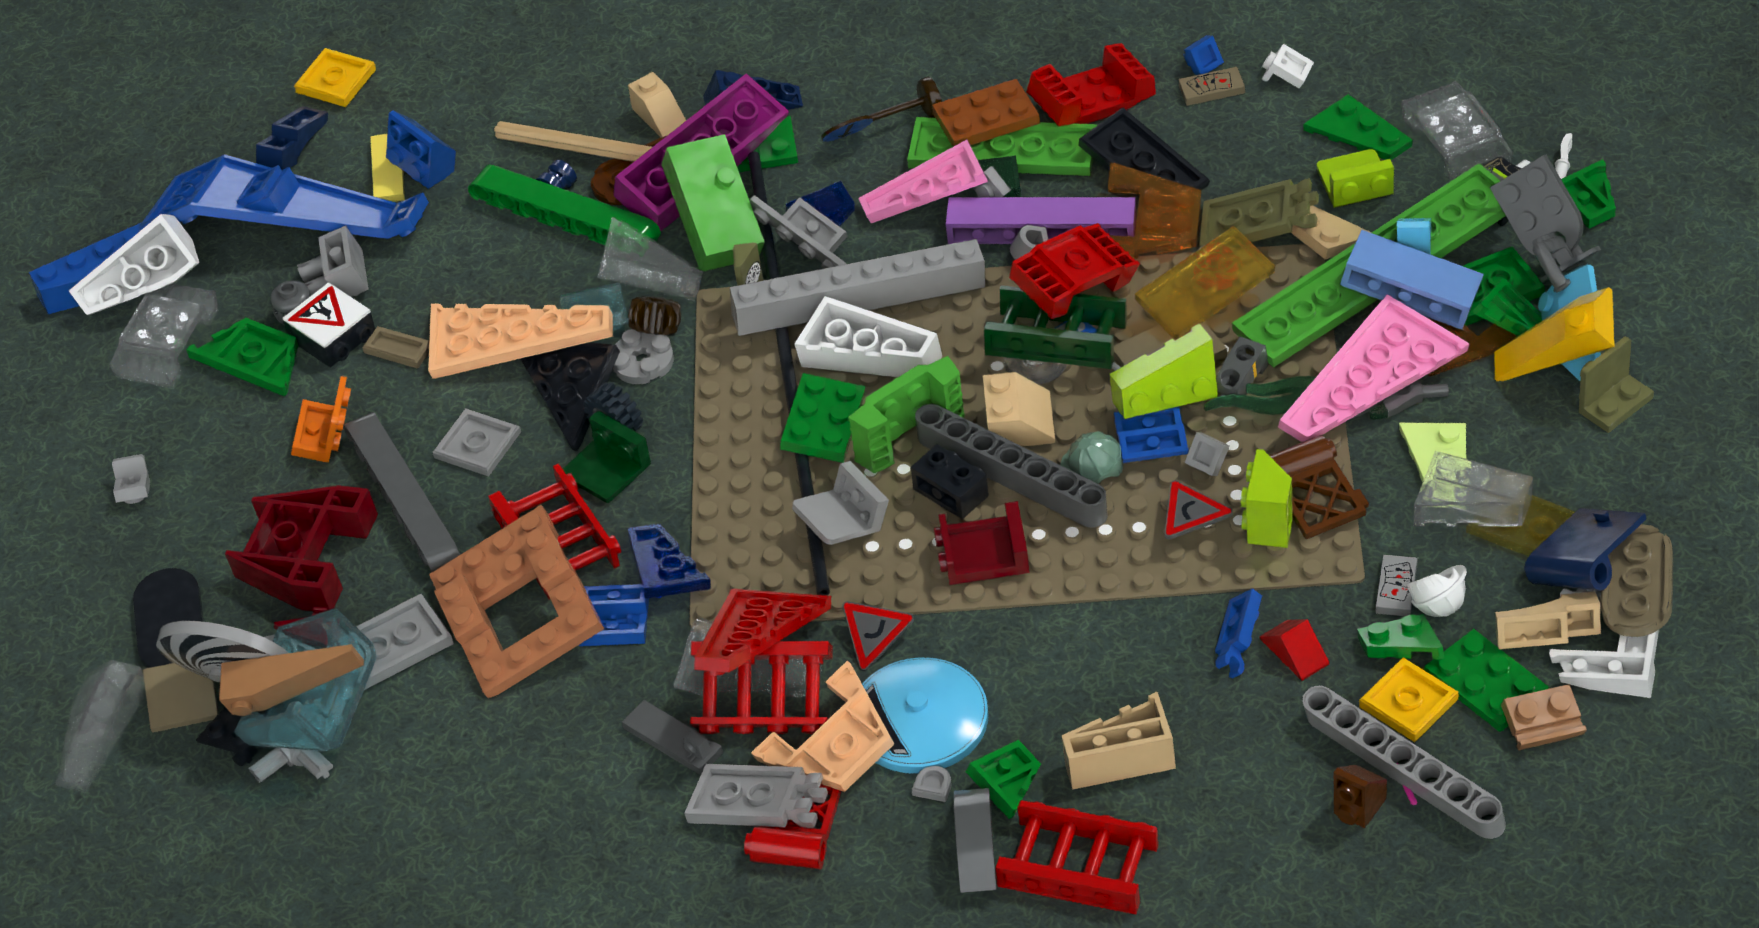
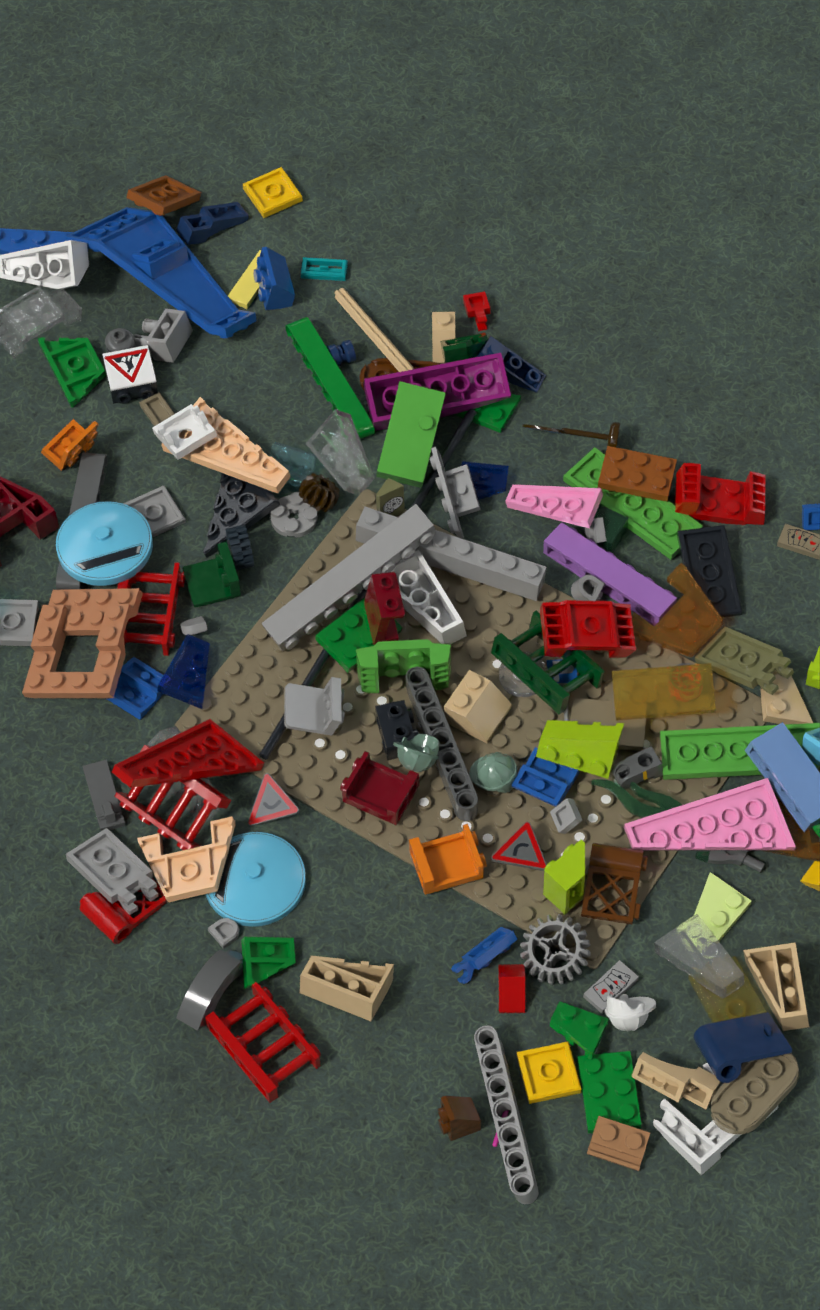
camera: 30 degrees right, 10 degrees up
(214, 137) = (163, 195): none -> dark orange plate
(443, 326) = (187, 419): none -> white piece
(454, 491) = (104, 543): none -> medium azure dish
(461, 120) = (324, 272): none -> teal tile
(627, 517) = (193, 626): none -> light grey tile
(667, 61) = (478, 307): none -> red plate
(690, 99) = (462, 347): none -> dark green slope
(773, 364) = (349, 578): none -> light grey brick
(840, 362) = (382, 606): none -> dark red panel
(1002, 478) = (418, 752): none -> sand green piece
(1119, 567) = (447, 860): none -> orange panel
(1336, 572) = (537, 938): none -> light grey gear
(1571, 472) = (780, 981): none -> tan wedge

